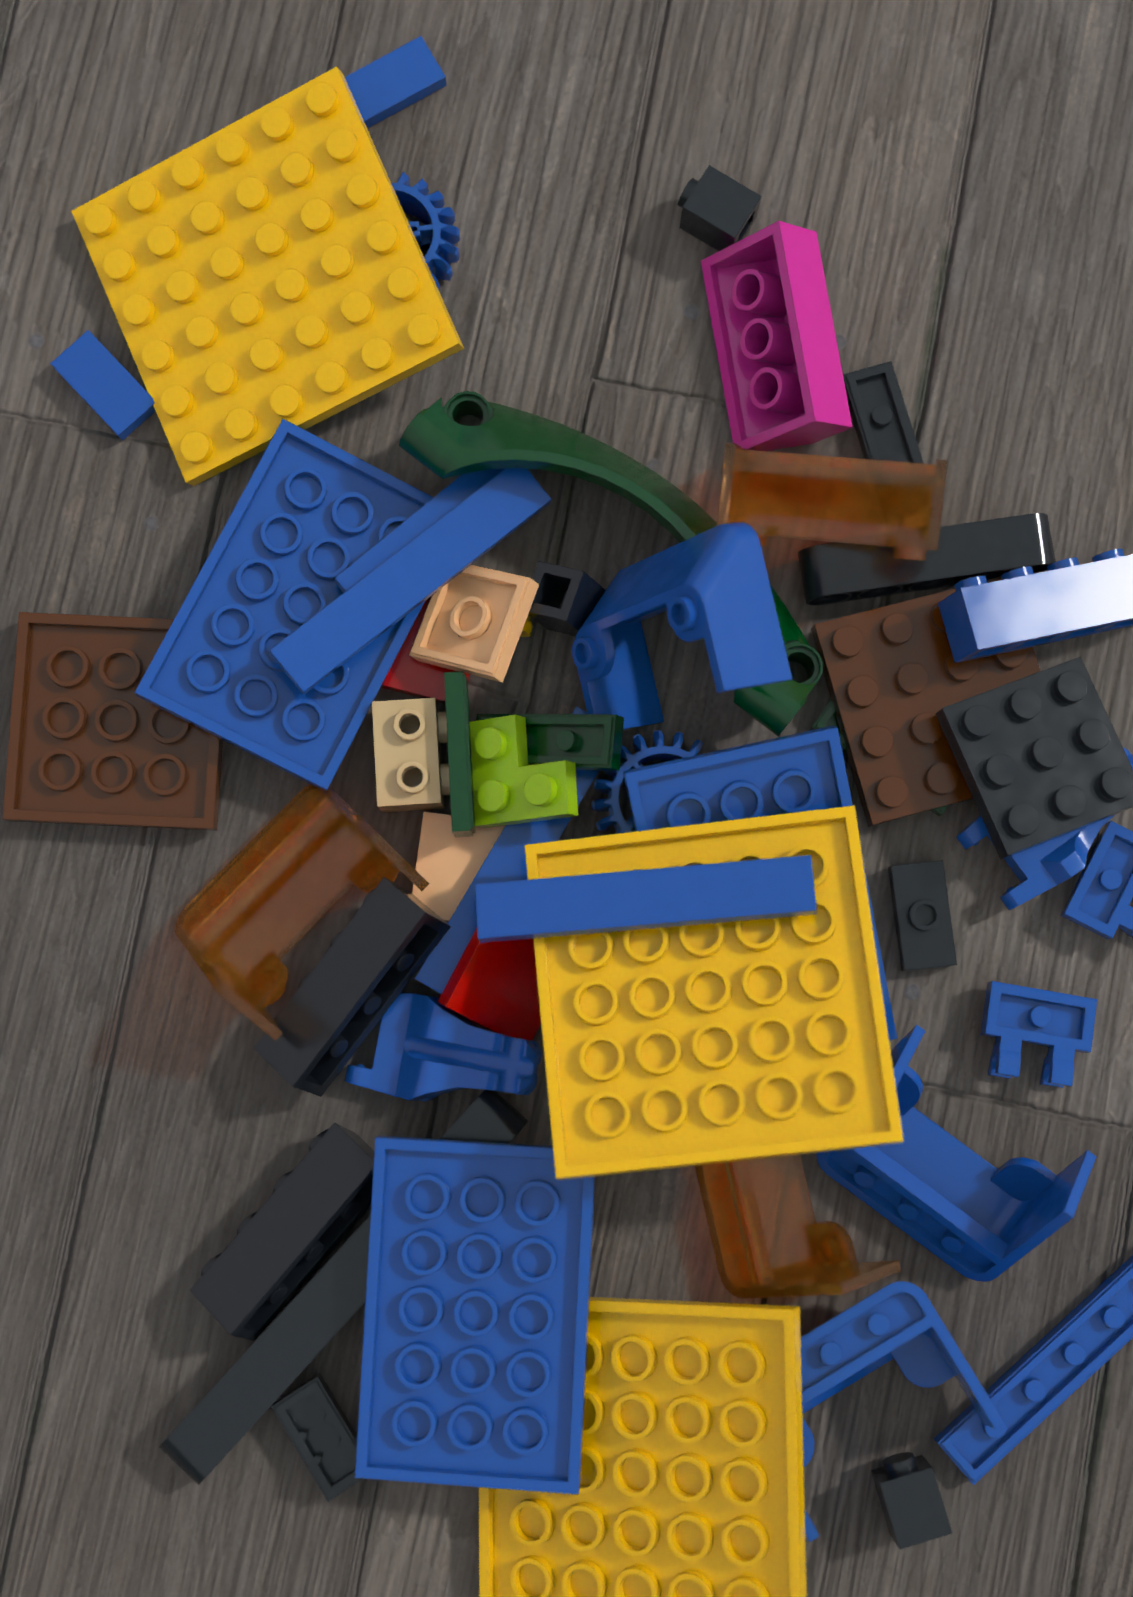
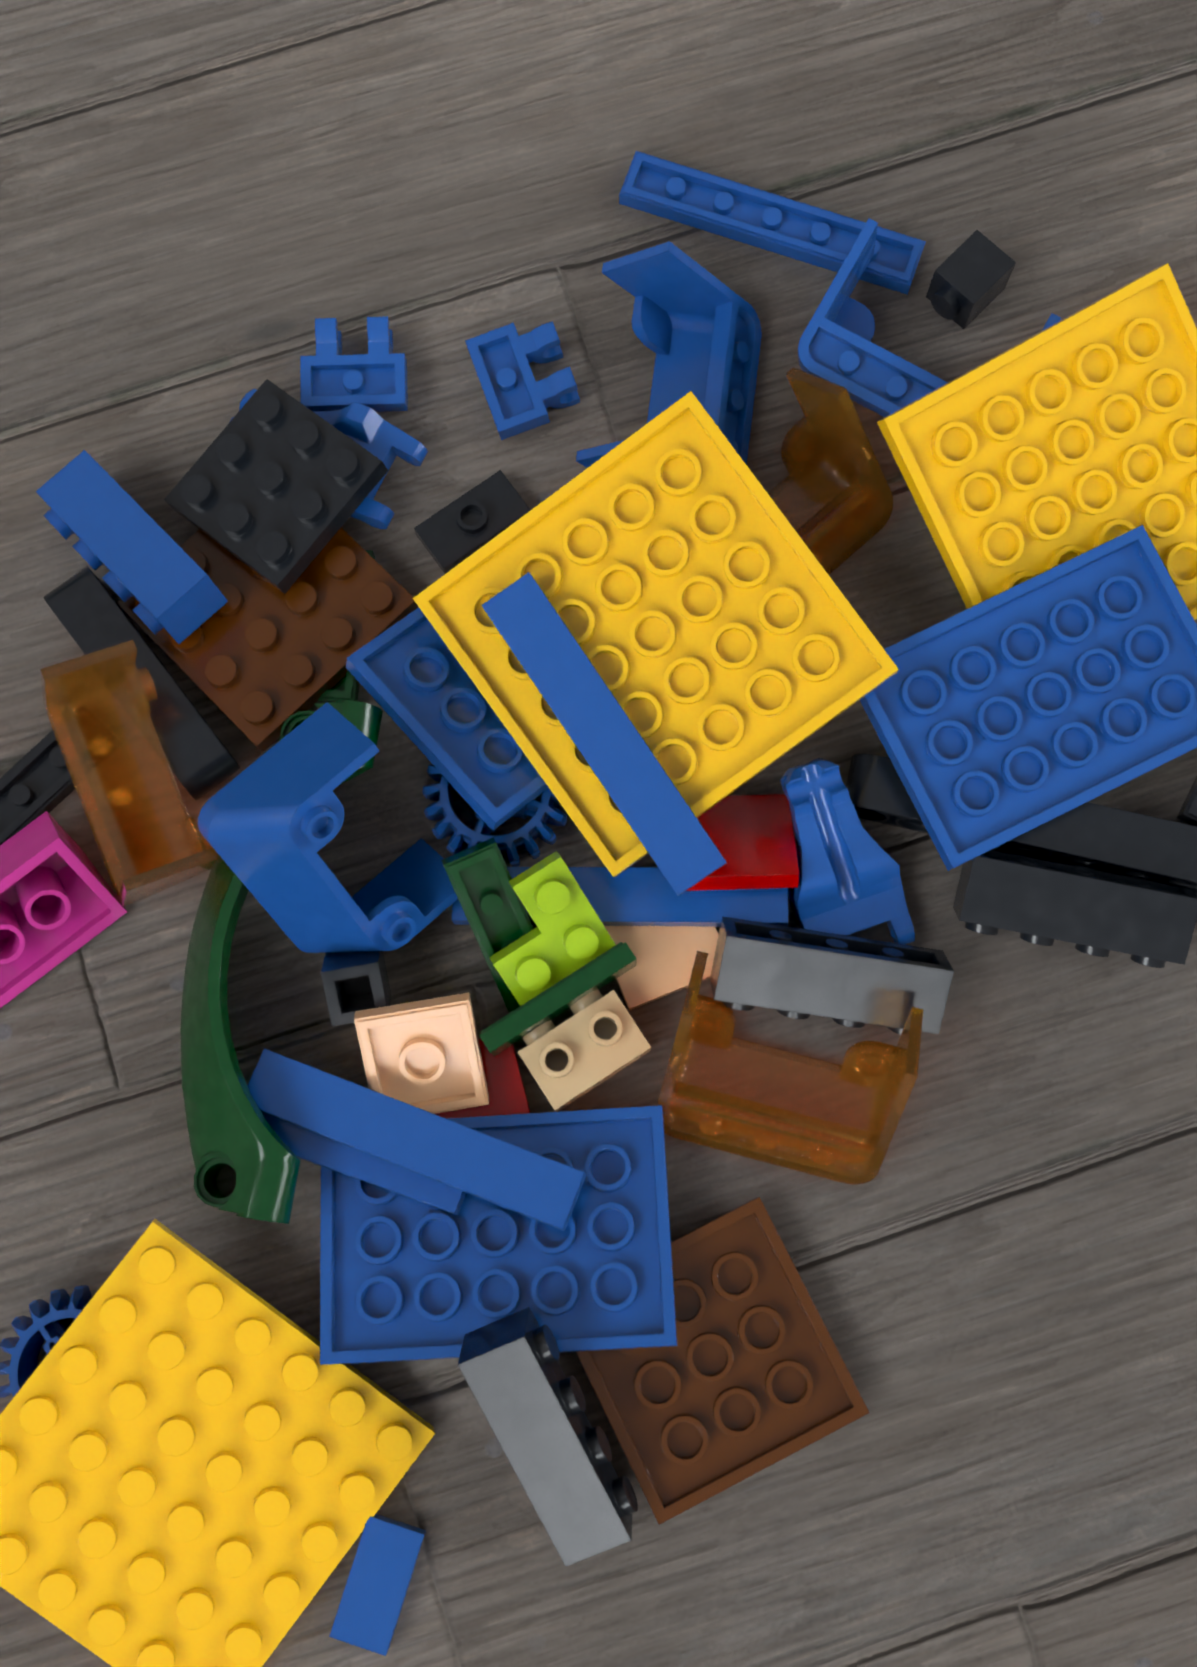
camera: 115 degrees left, 5 degrees down
(128, 559) = (548, 1436): none -> brick

